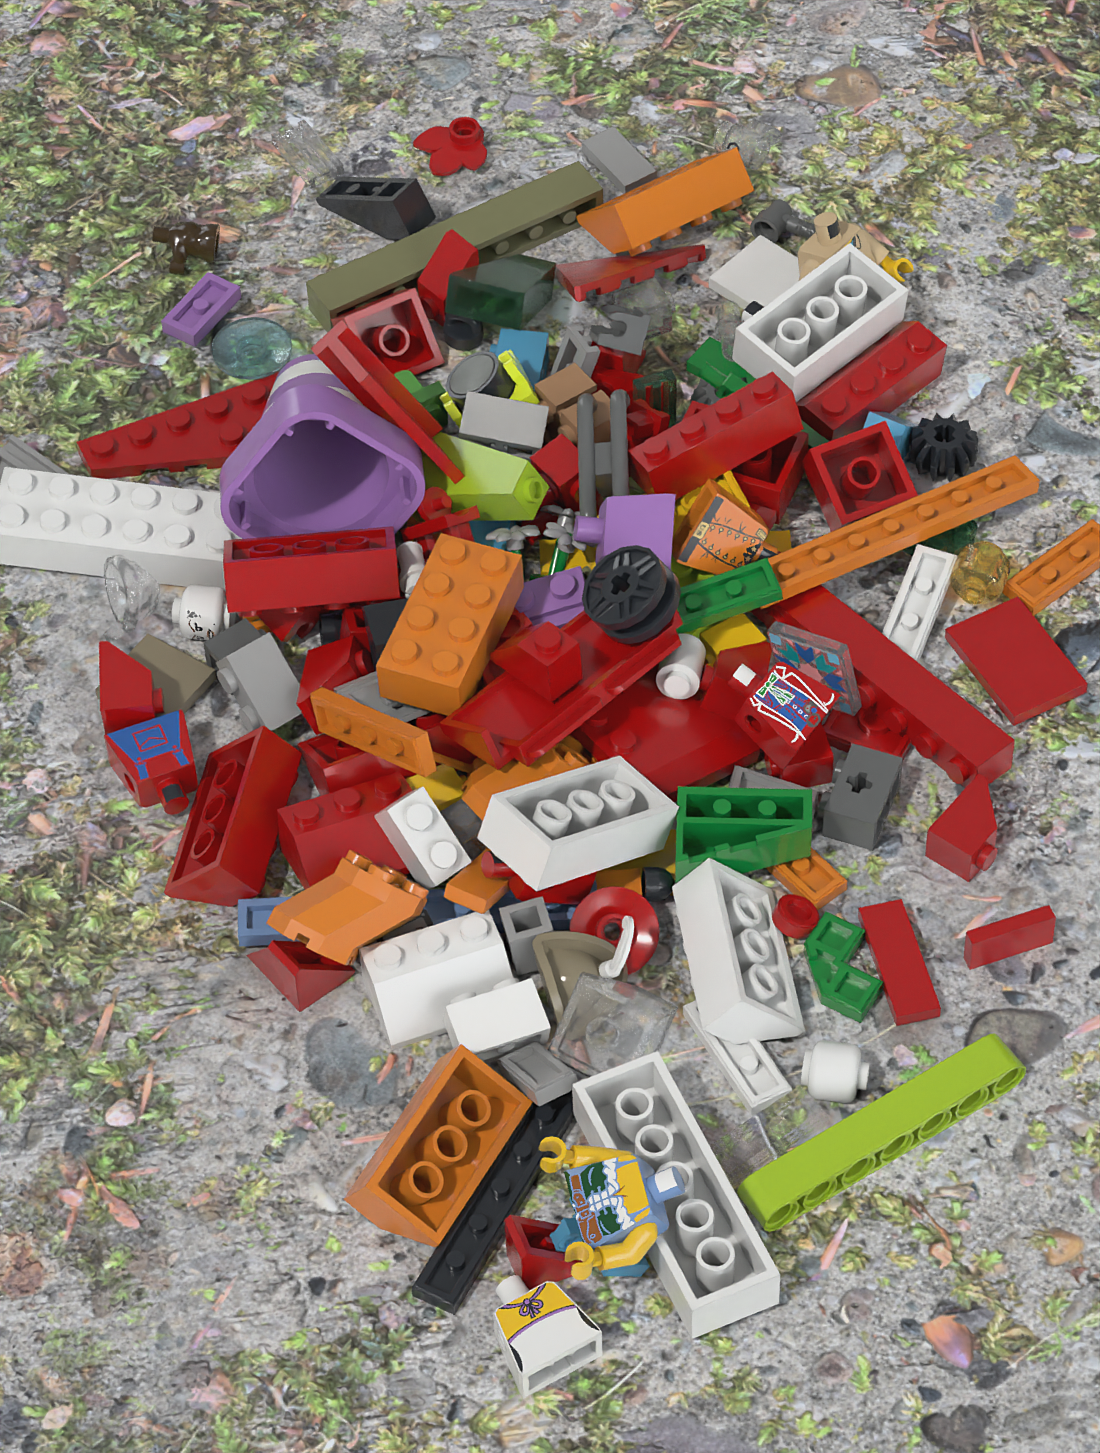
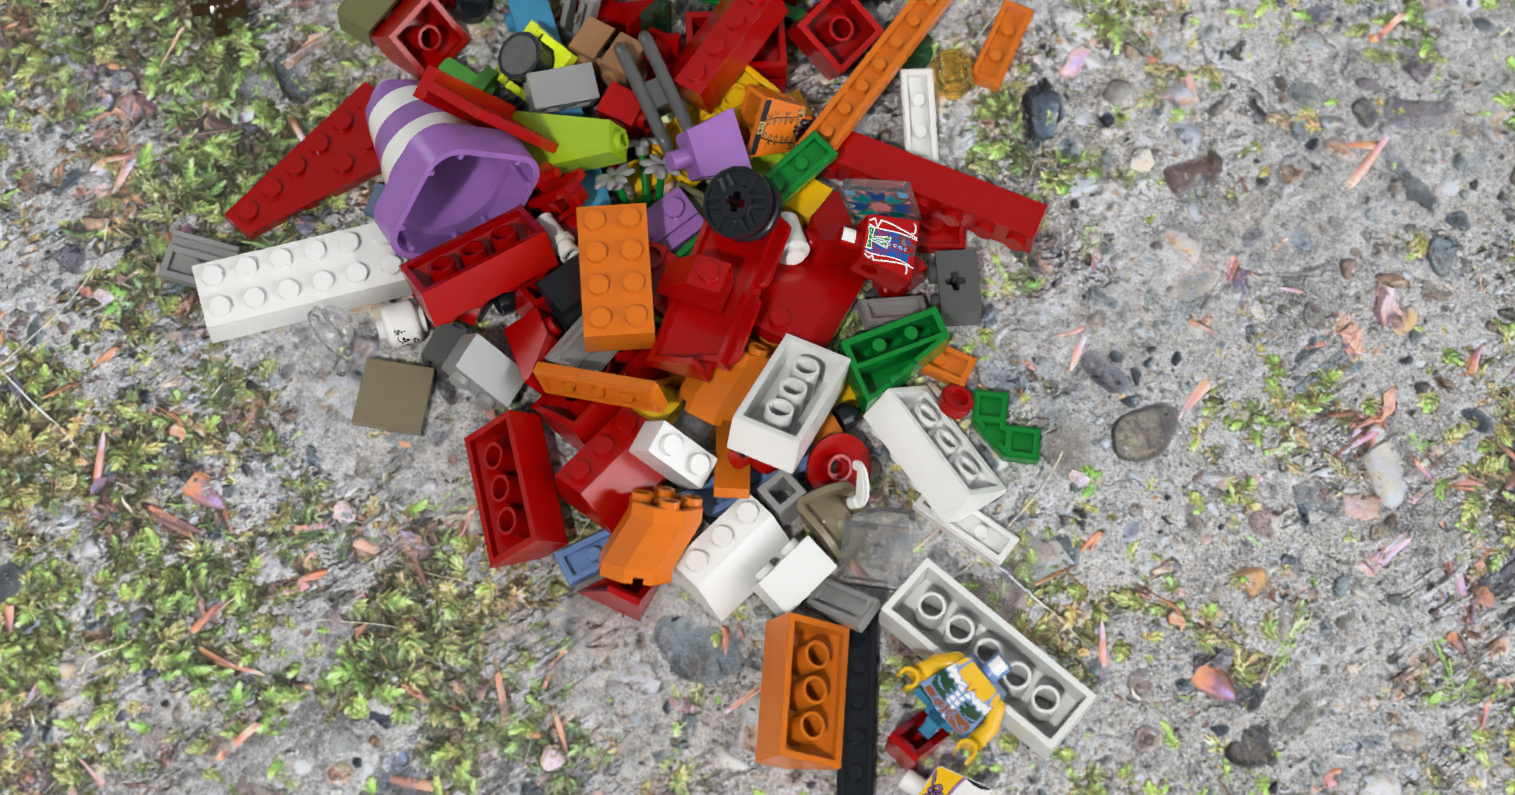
camera: 30 degrees left, 15 degrees up
(126, 690) = (383, 418): red slope -> none
(155, 761) = (432, 464): red torso -> none
(201, 309) = (261, 62): medium lavender plate -> none
(251, 348) = (316, 72): clear light blue dish -> none
(834, 1071) = (1043, 513): white head -> none
(881, 1132) = (1097, 548): lime beam -> none
(899, 962) = (1042, 407): red tile -> none
(965, 832) = (1043, 287): red slope -> none
(1009, 937) = (1110, 358): red tile -> none
(1015, 661) = (1005, 134): red tile -> none

